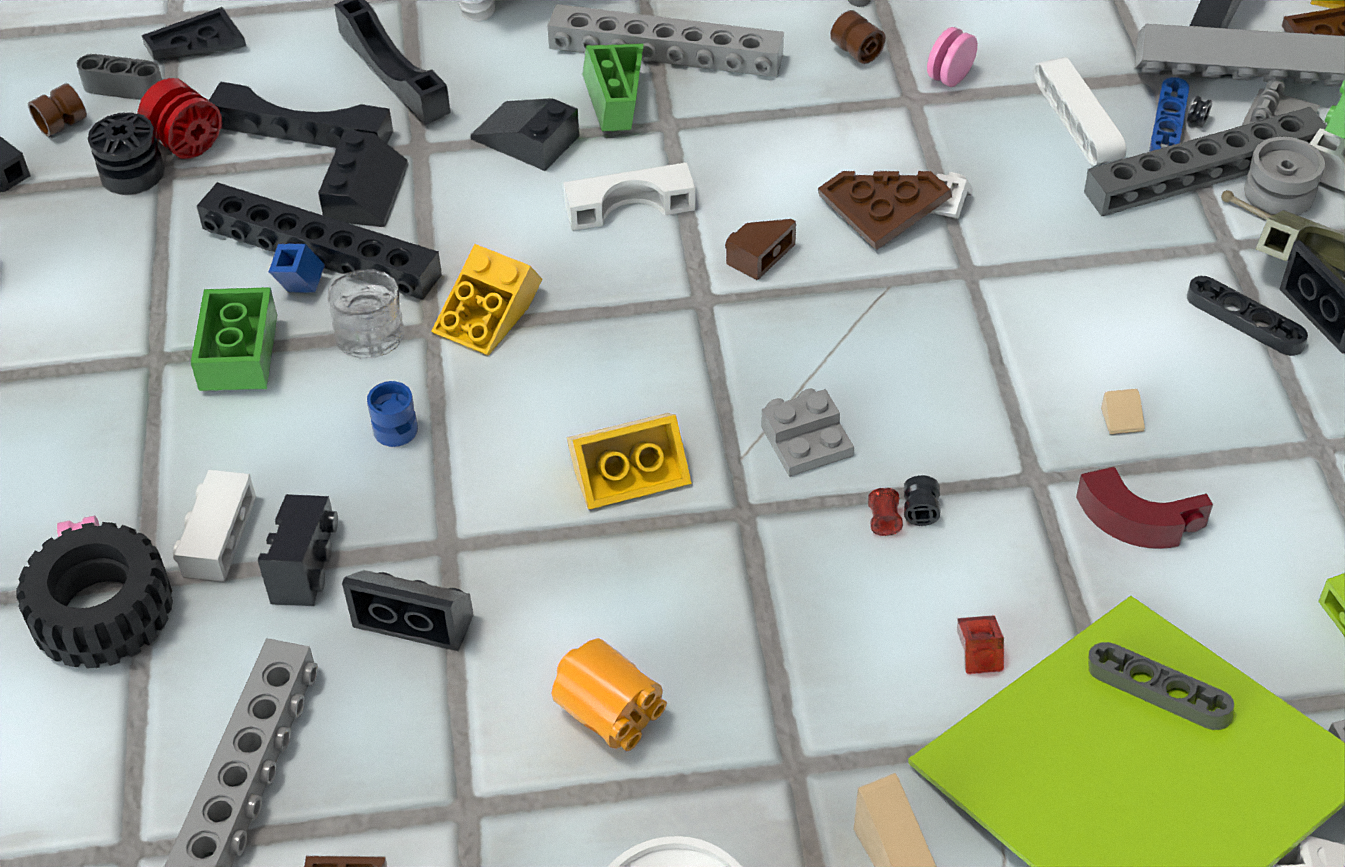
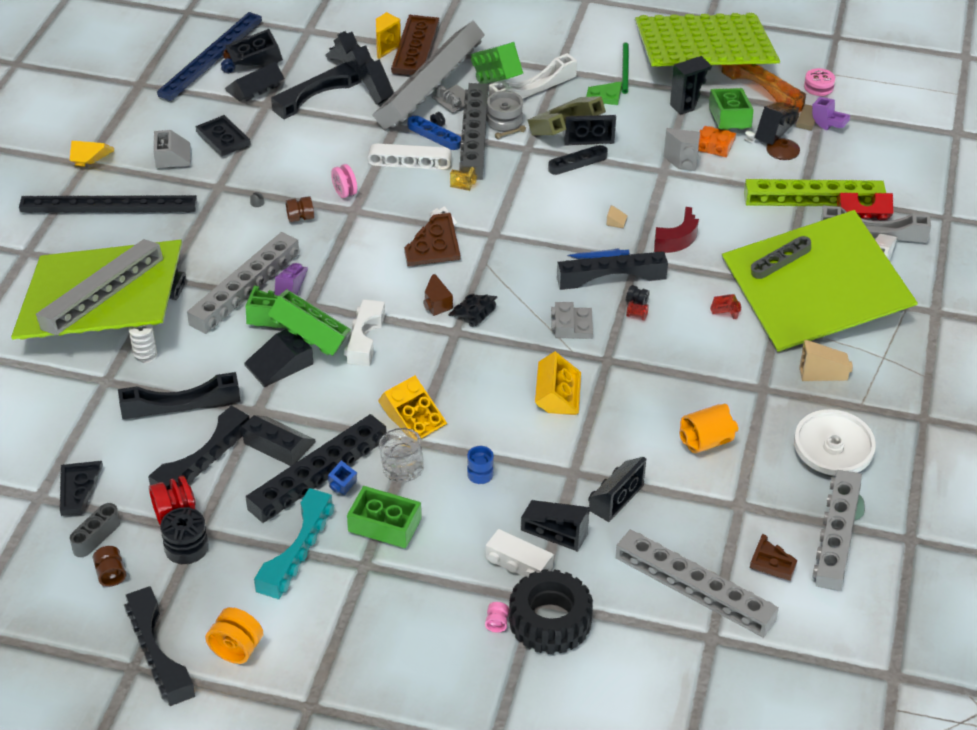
camera: 70 degrees left, 5 degrees down
(94, 269) = (276, 573): none -> teal arch
(579, 114) = (308, 322): none -> bright green brick
(692, 83) = (290, 279): none -> medium lavender slope
(775, 297) = (475, 308): none -> black hinge
(1004, 484) = (575, 273): none -> black arch
(1019, 433) = (603, 253): none -> blue bar
(1069, 190) = (462, 179): none -> clear yellow bracket

